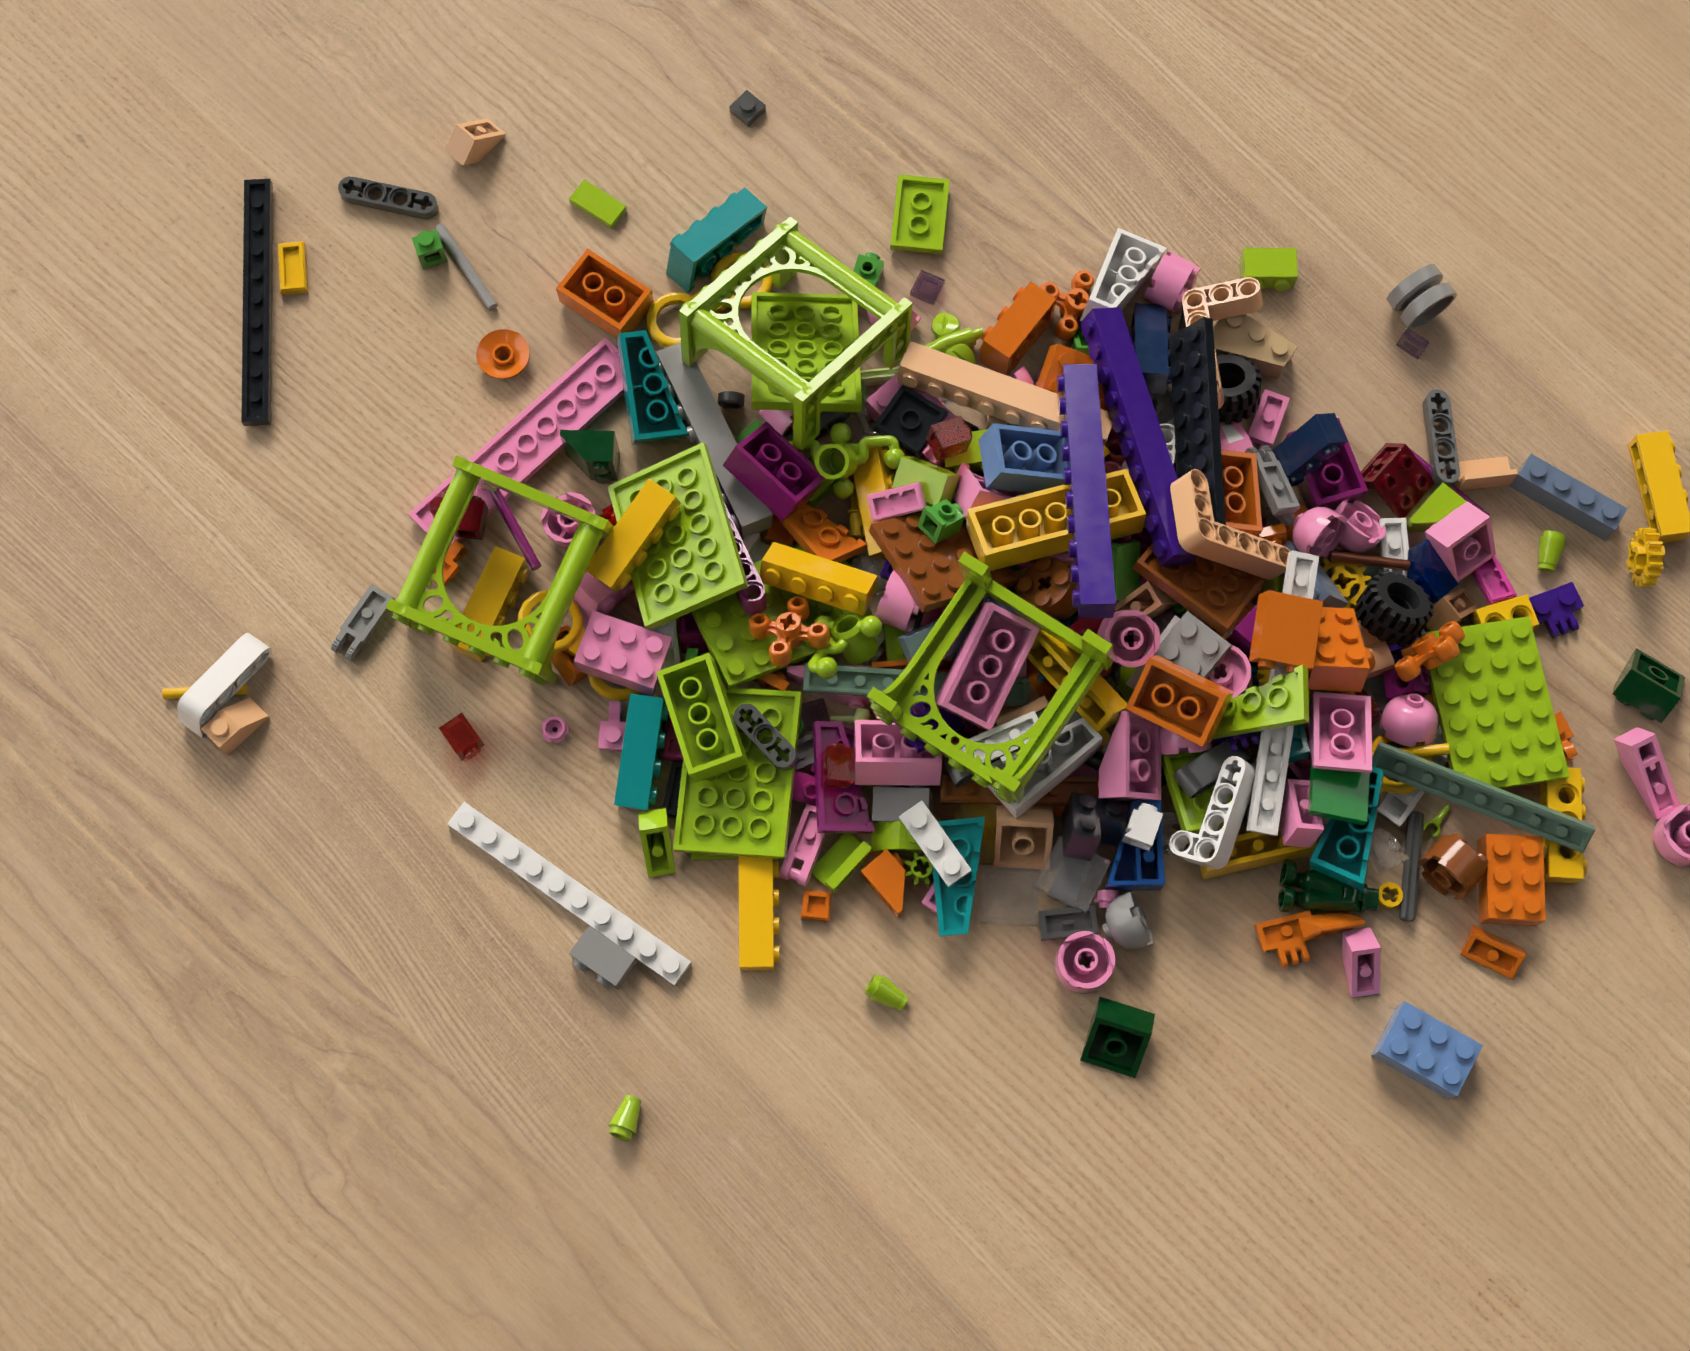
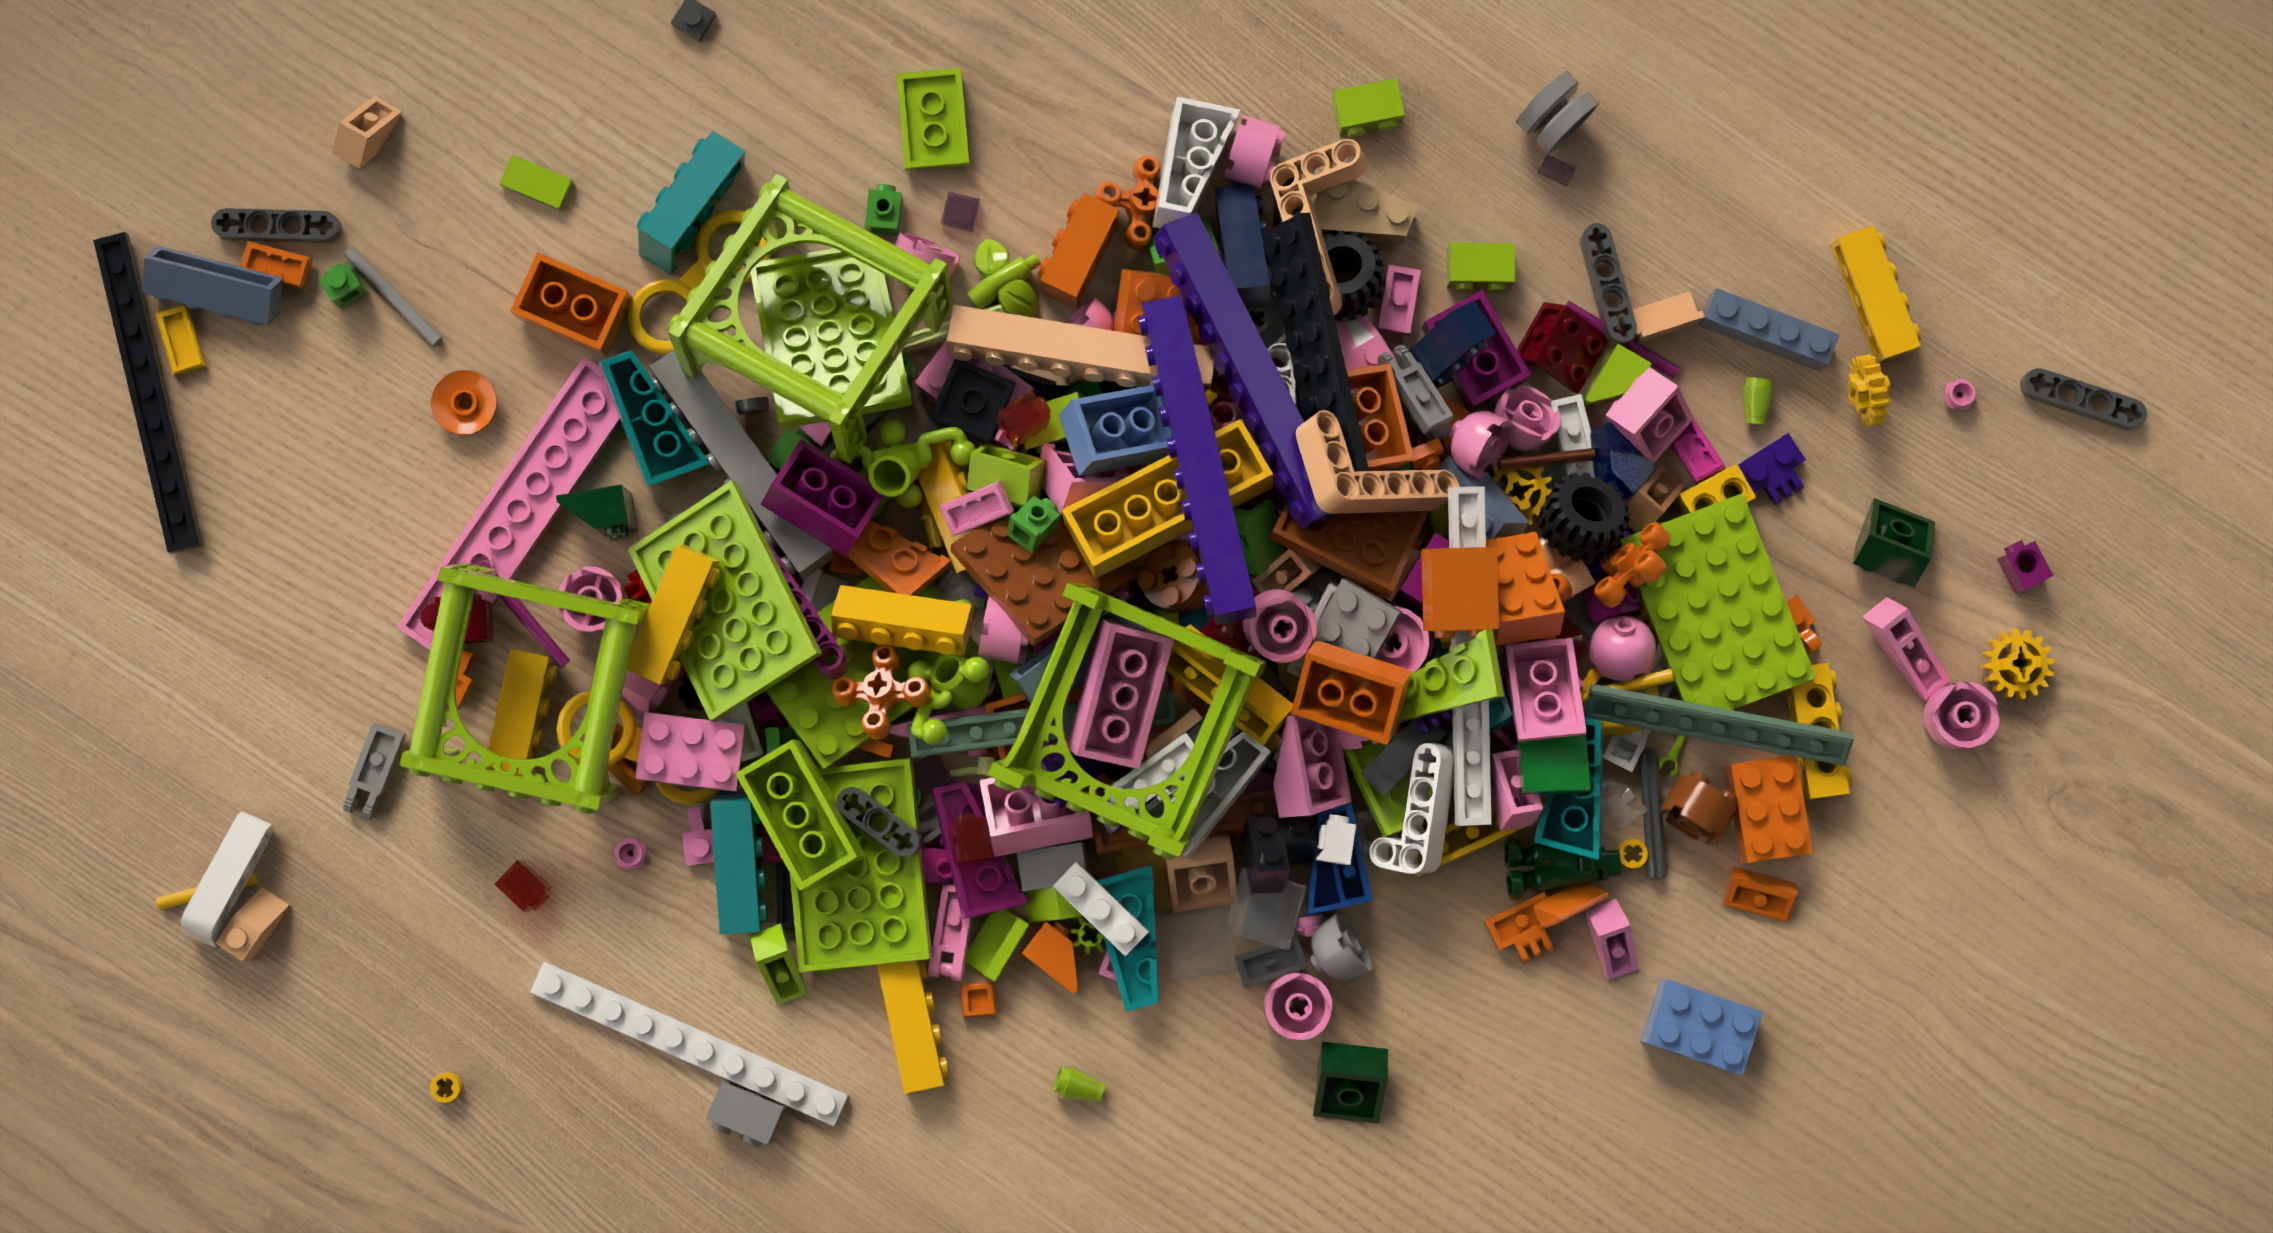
camera: 15 degrees left, 10 degrees up
(327, 229) = (212, 285): none -> sand blue brick
(351, 887) = (435, 1087): none -> yellow bush
(380, 226) = (277, 262): none -> orange plate
(632, 612) = (688, 694): none -> dark brown plant
(1346, 401) = (1480, 266): none -> lime brick

